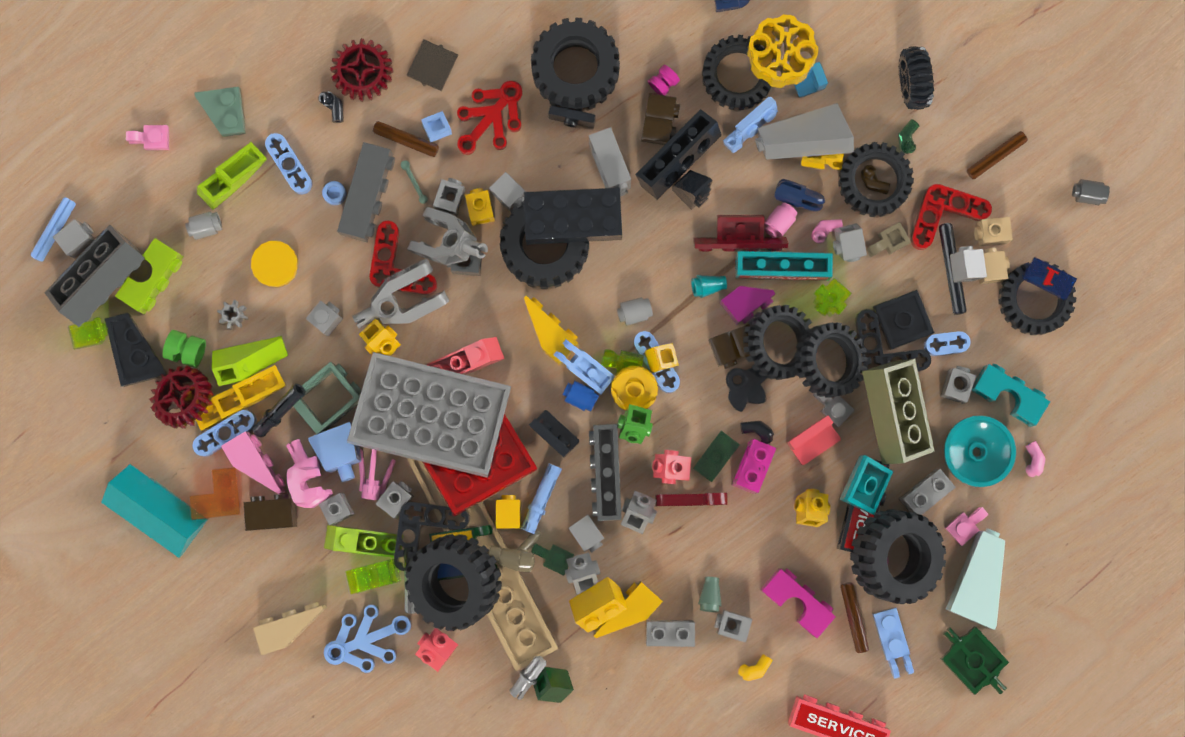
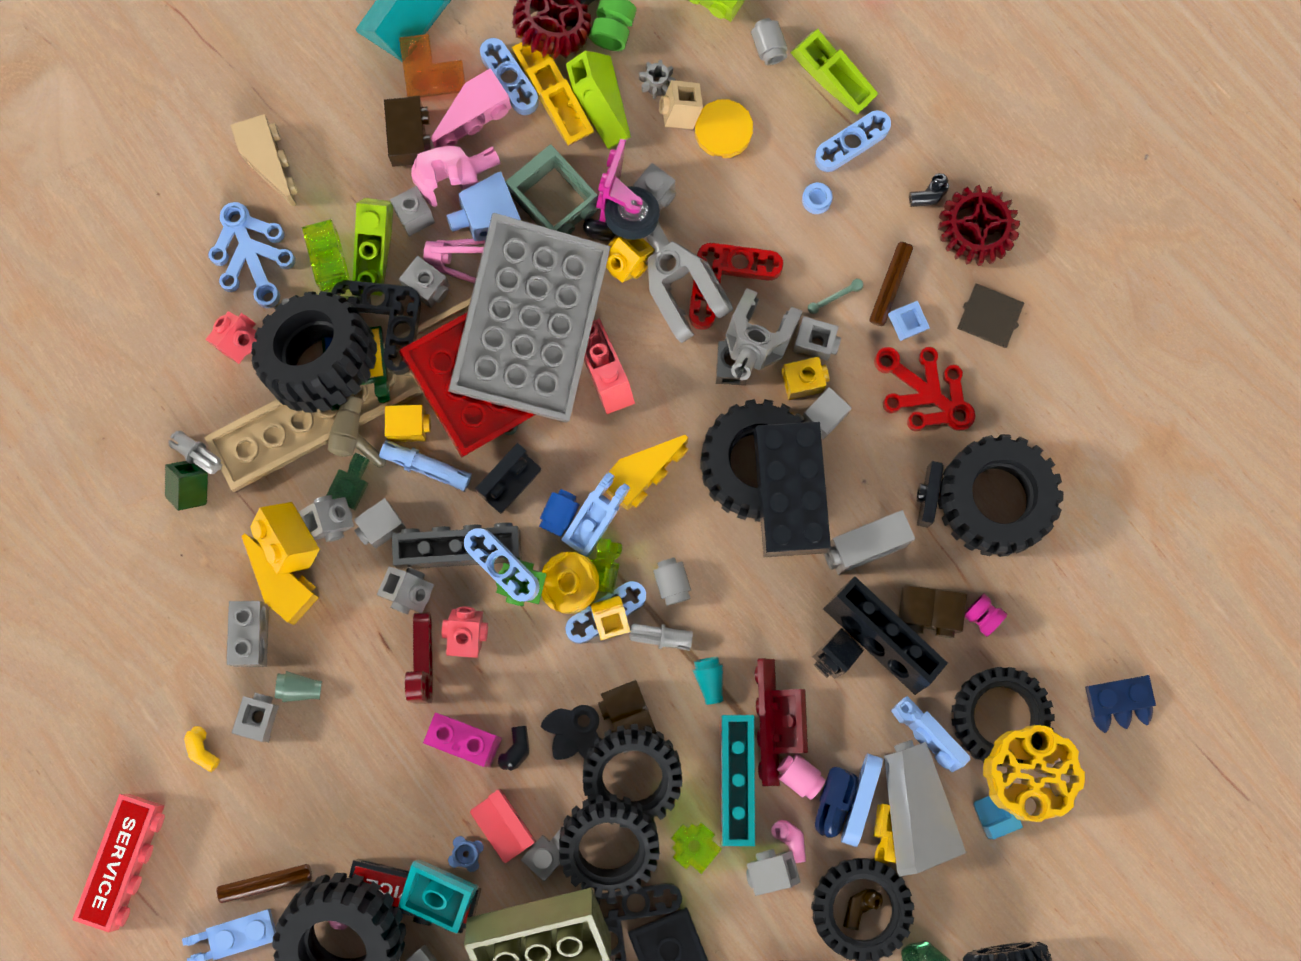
camera: 85 degrees right, 5 degrees down
(224, 109) = (918, 62): sand green wing -> none
(256, 295) = (681, 104): none -> tan brick
(273, 416) = (528, 130): black pin -> none
(345, 336) = (626, 209): none -> plate
(355, 360) = (598, 230): none -> black arm
(365, 192) = (818, 234): dark grey brick -> none
(625, 445) = (512, 586): none -> light blue beam
(675, 320) = (661, 636): none -> light grey axle
(716, 456) = (481, 693): clear green plate -> none
(744, 301) = (688, 728): magenta slope -> none
(812, 181) = (862, 800): none -> light blue beam
(812, 508) = (410, 822): yellow brick -> none
(815, 615) = (305, 785): dark pink arch -> none
(840, 467) = (457, 858): none -> medium blue plate
(891, 240) = (779, 932): dark tan plate -> none

